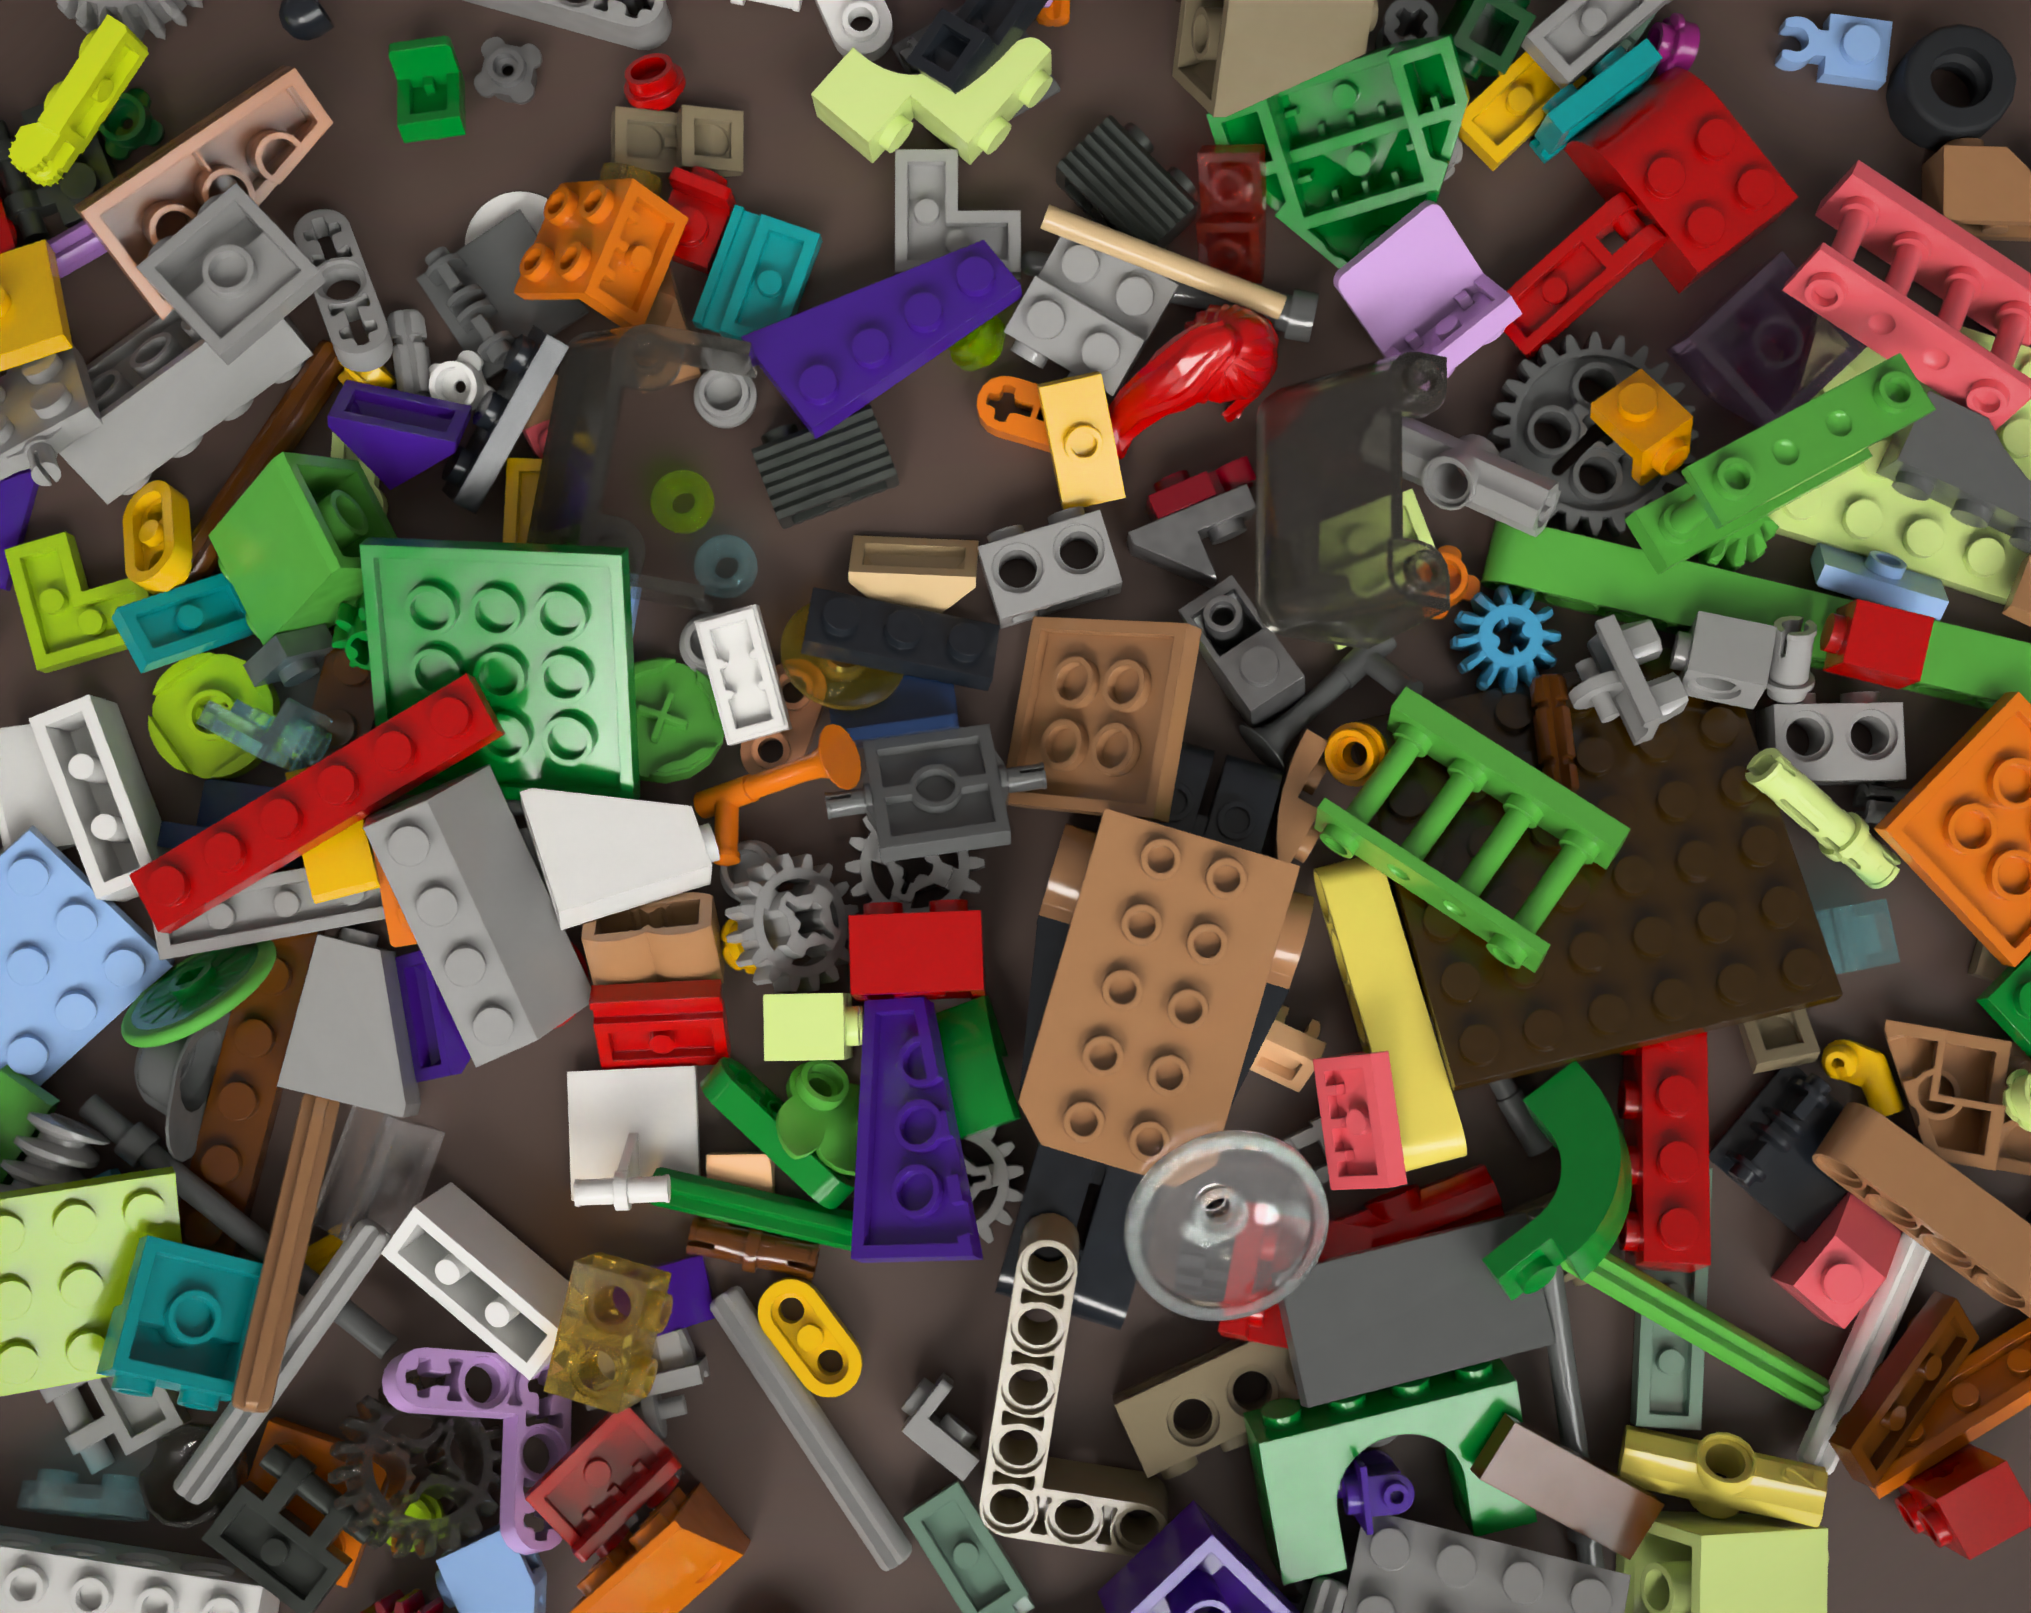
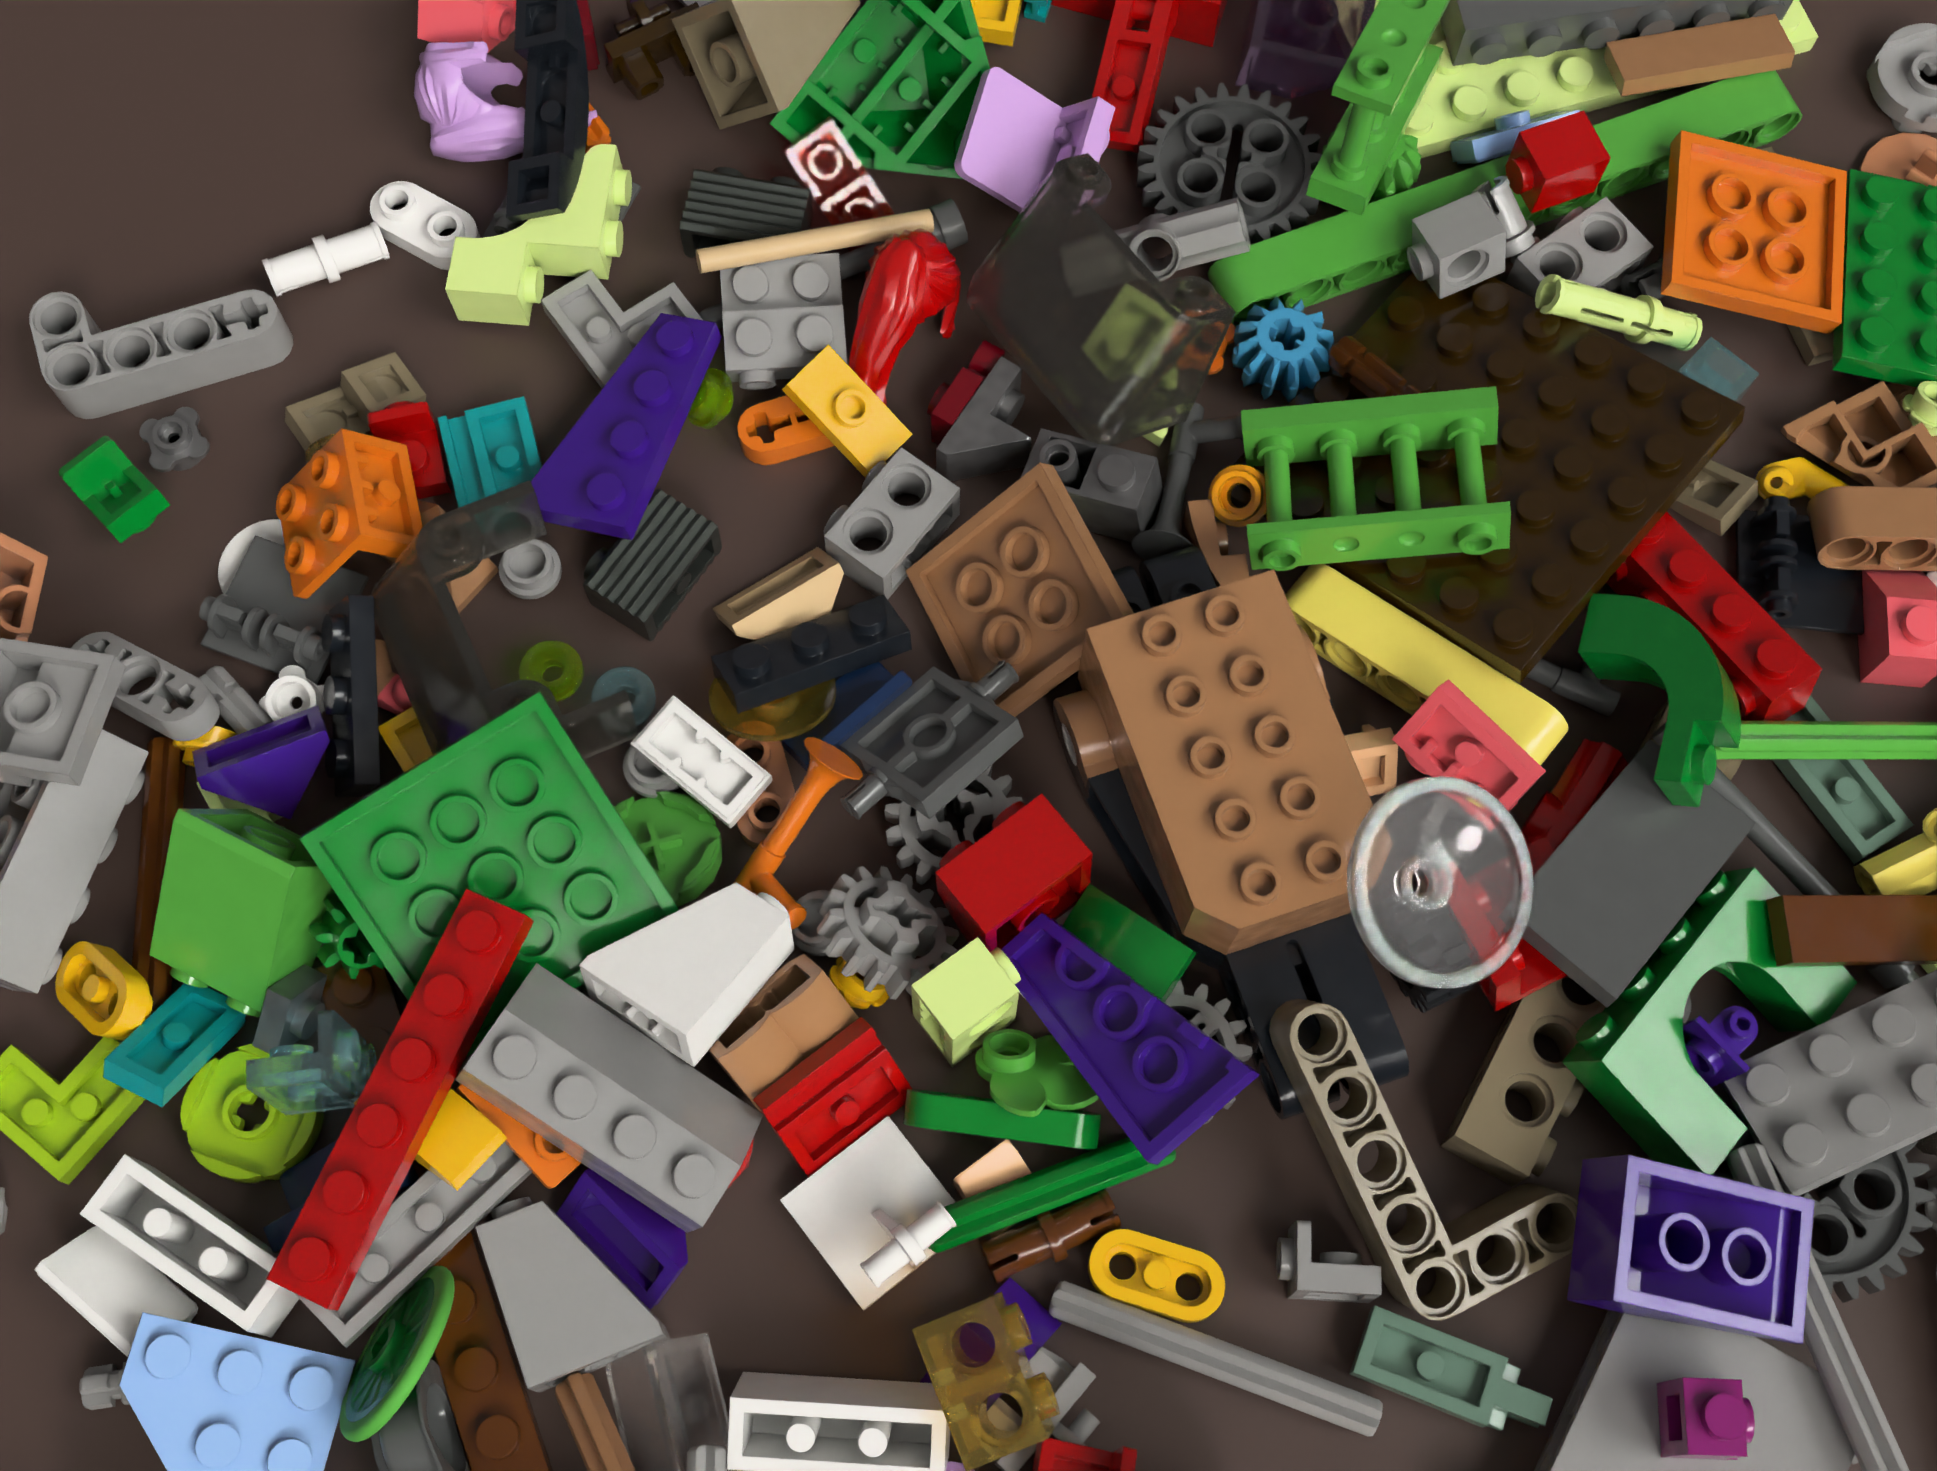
camera: 40 degrees left, 15 degrees down
(653, 82) = (305, 373): red plate -> none
(1617, 685) = (1396, 310): light grey hips -> none
(1645, 425) = (1267, 123): light orange bracket -> none

